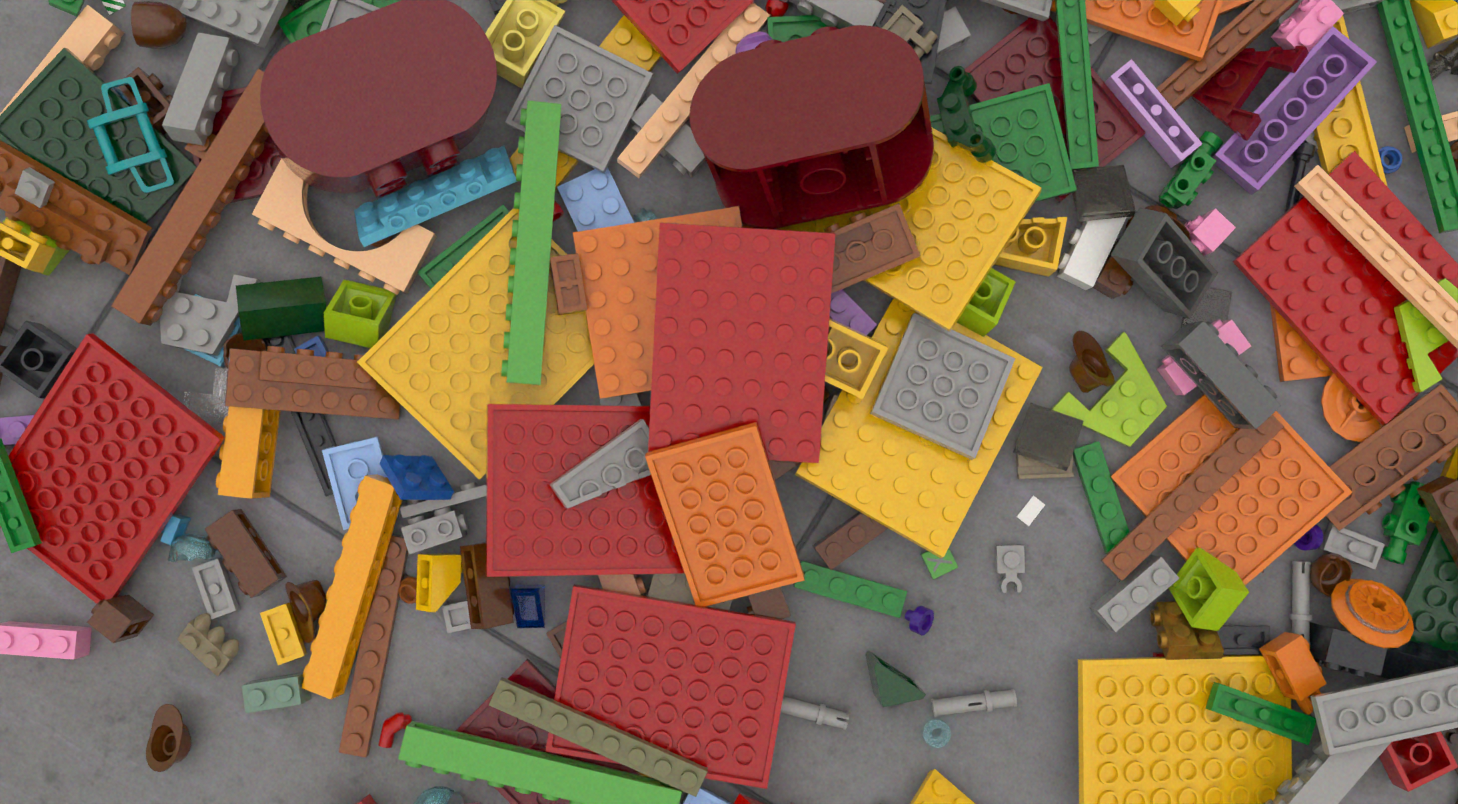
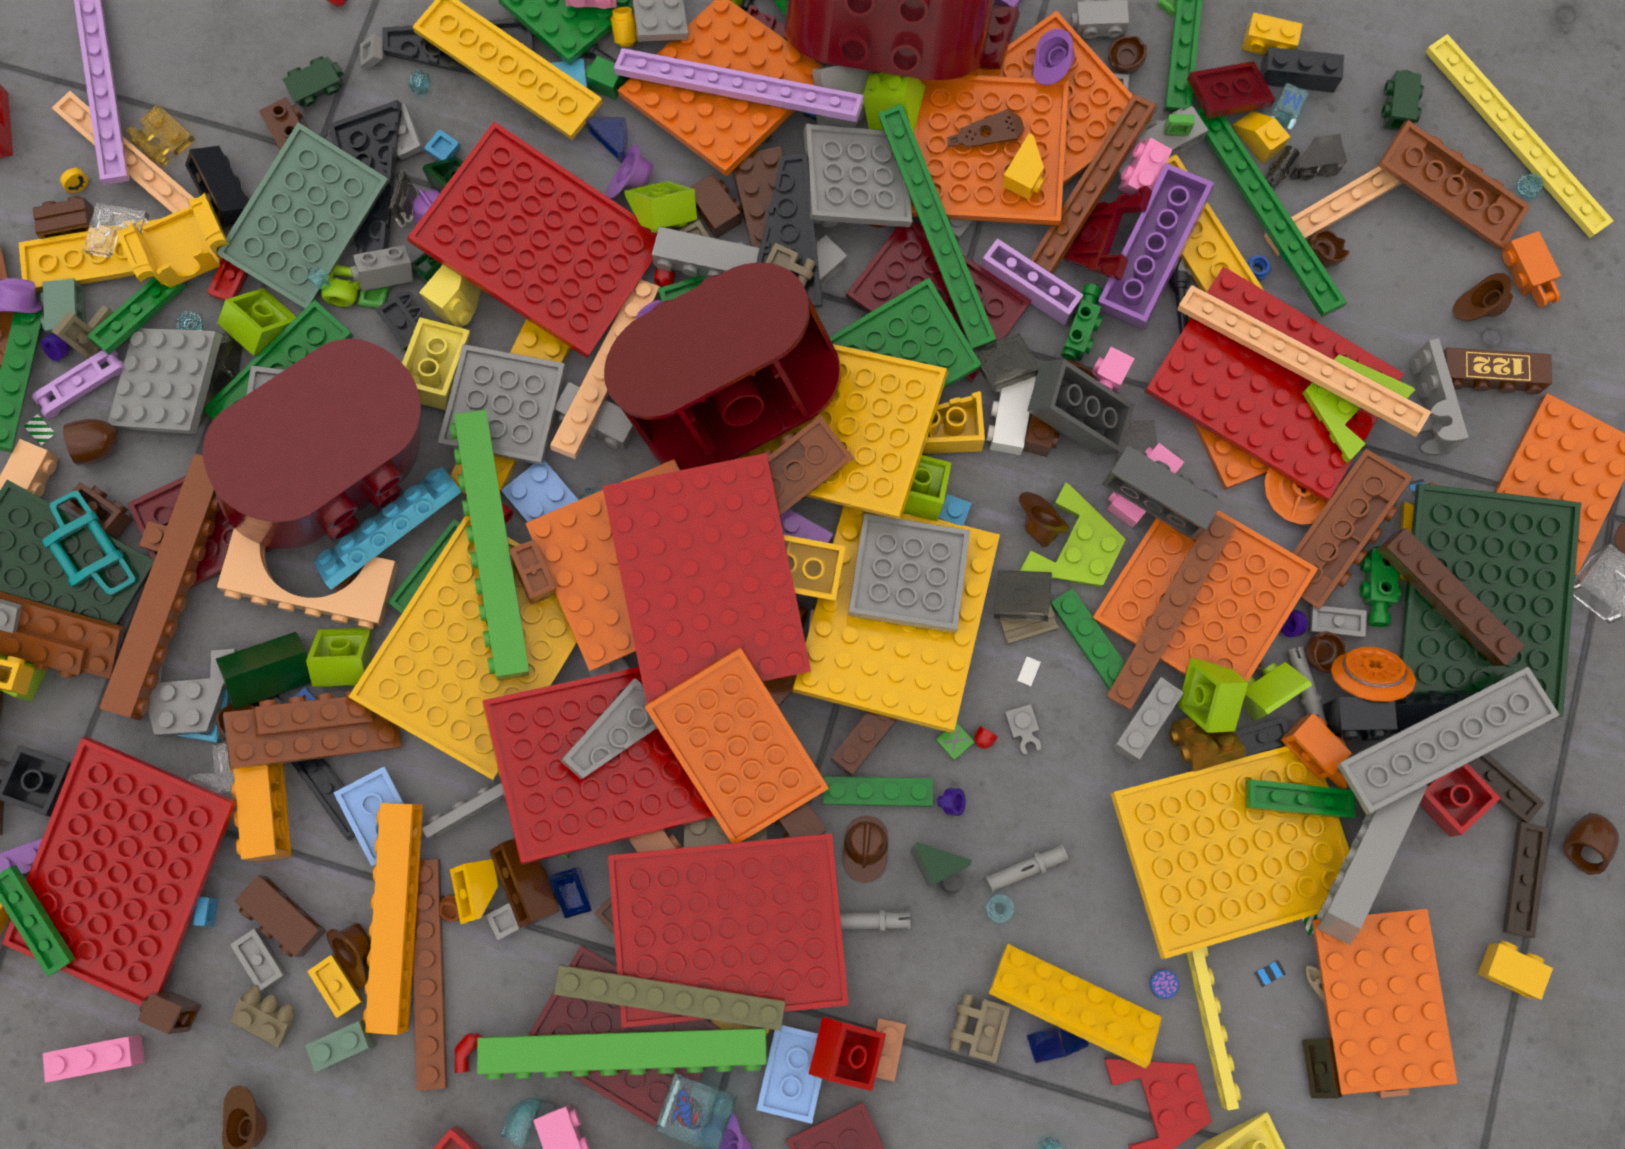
camera: 10 degrees left, 10 degrees down
(190, 547) = (223, 922): clear light blue hair -> none
(201, 89) = (143, 487): light grey brick -> none
(416, 477) = (431, 793): blue plate -> none
(442, 528) = (461, 843): light grey brick -> none
(823, 640) = (865, 849): none -> reddish brown piece
(958, 117) = (854, 327): dark green plate -> none
(968, 566) = (984, 738): none -> red hinge
(1005, 331) = (954, 510): none -> dark azure plate
(1271, 599) = (1273, 689): none -> lime slope

